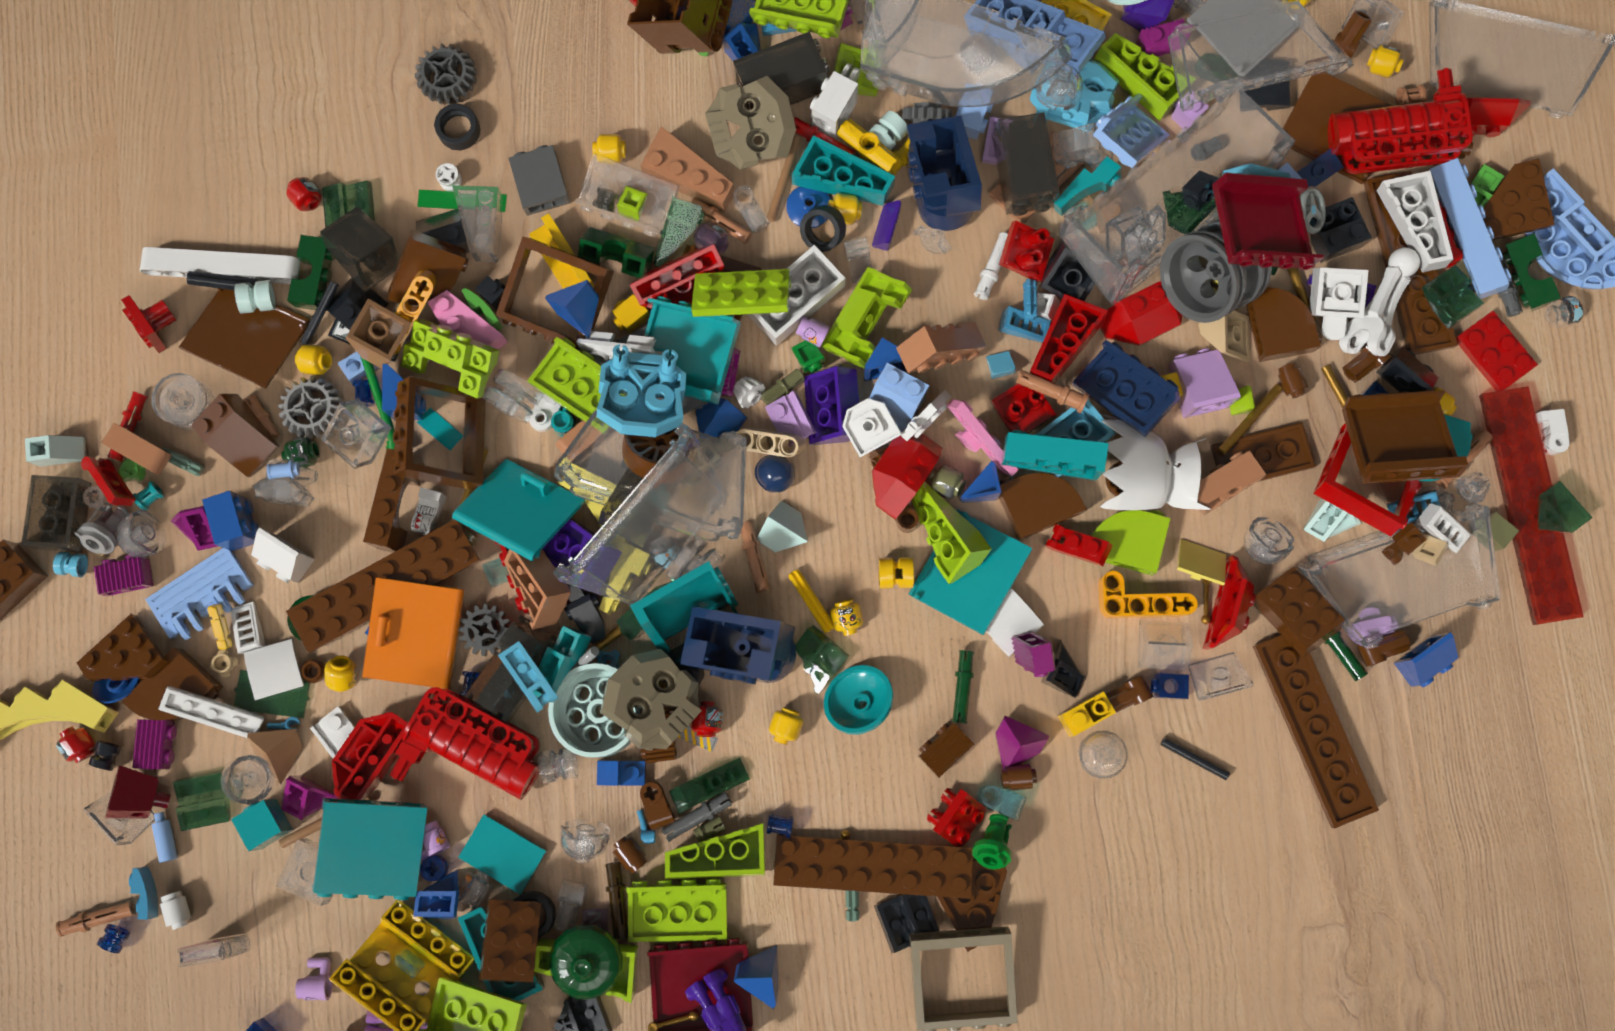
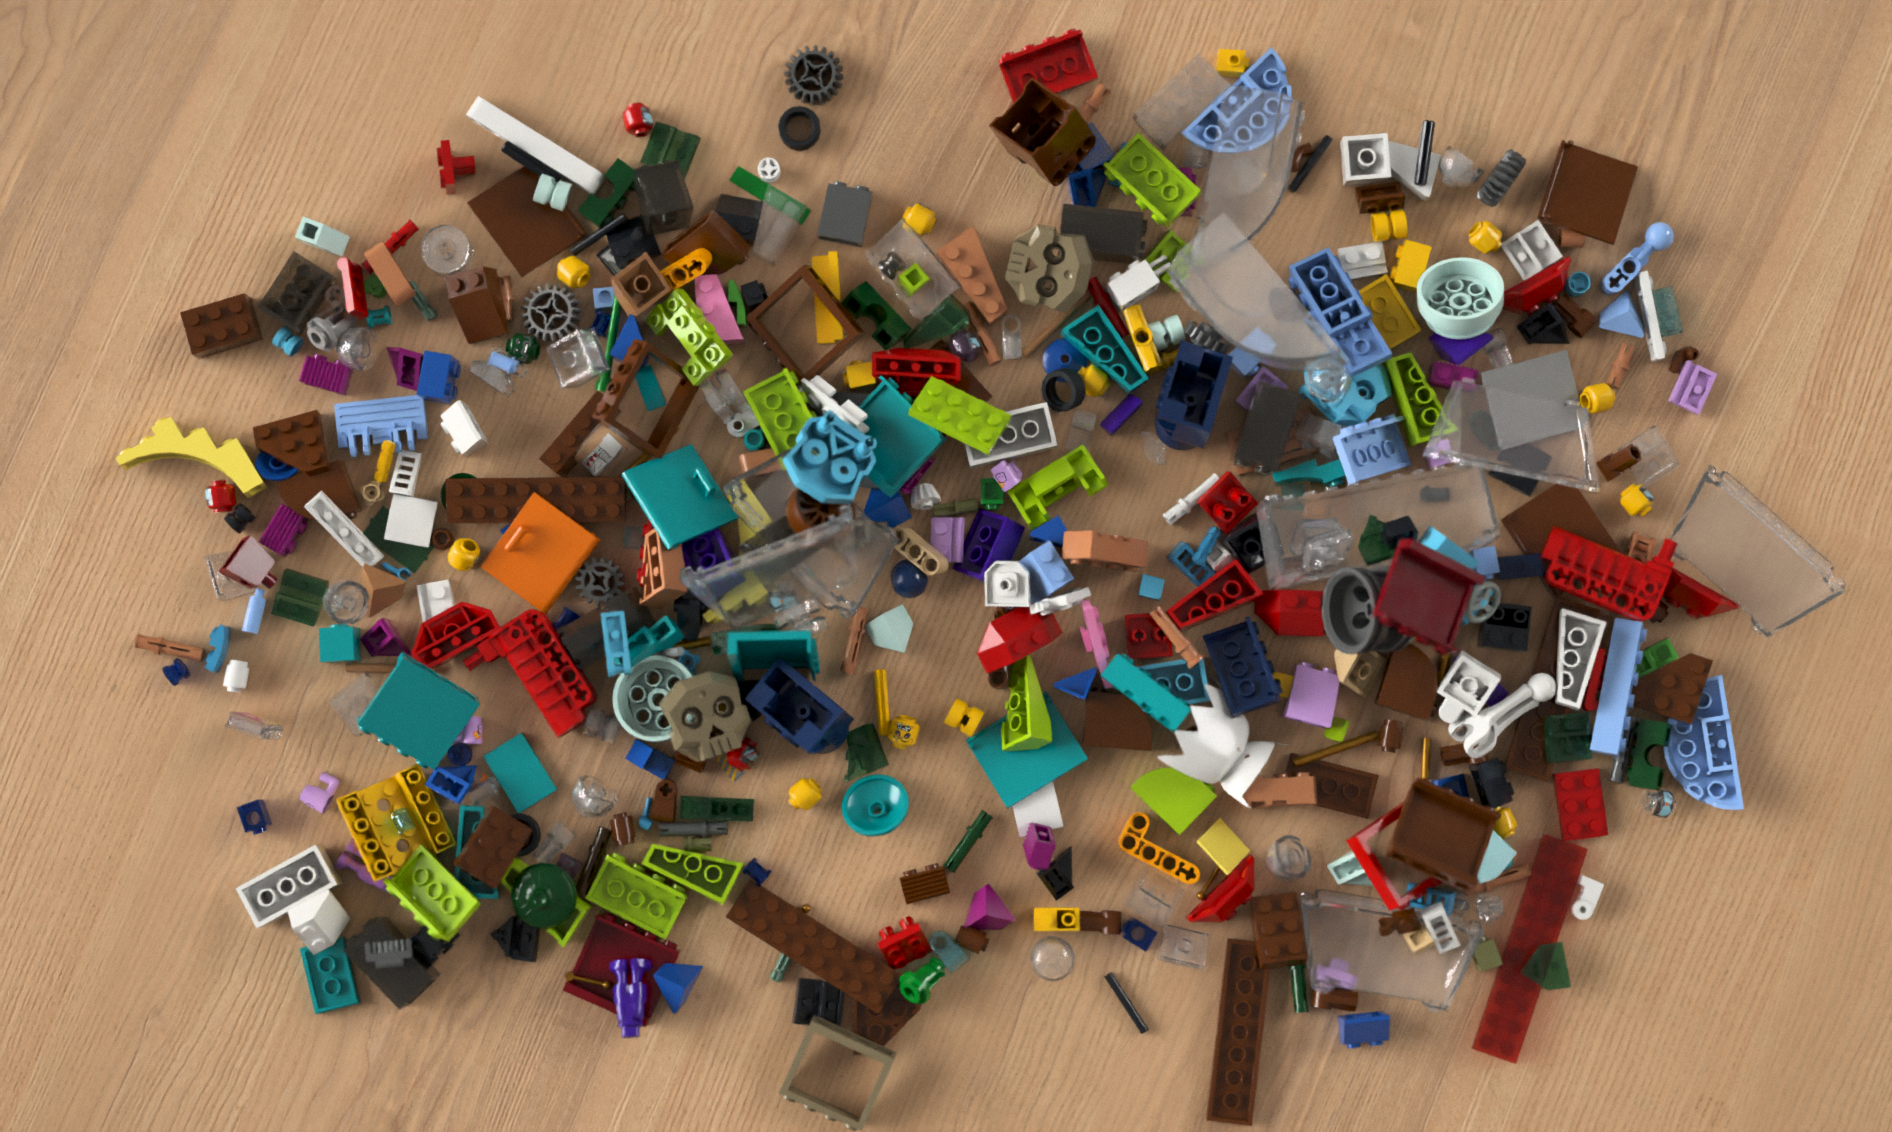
camera: 30 degrees right, 5 degrees up
(576, 305) = (817, 350): blue slope -> none
(947, 481) = (1049, 663): olive head -> none
(1079, 545) = (1128, 777): red plate -> none

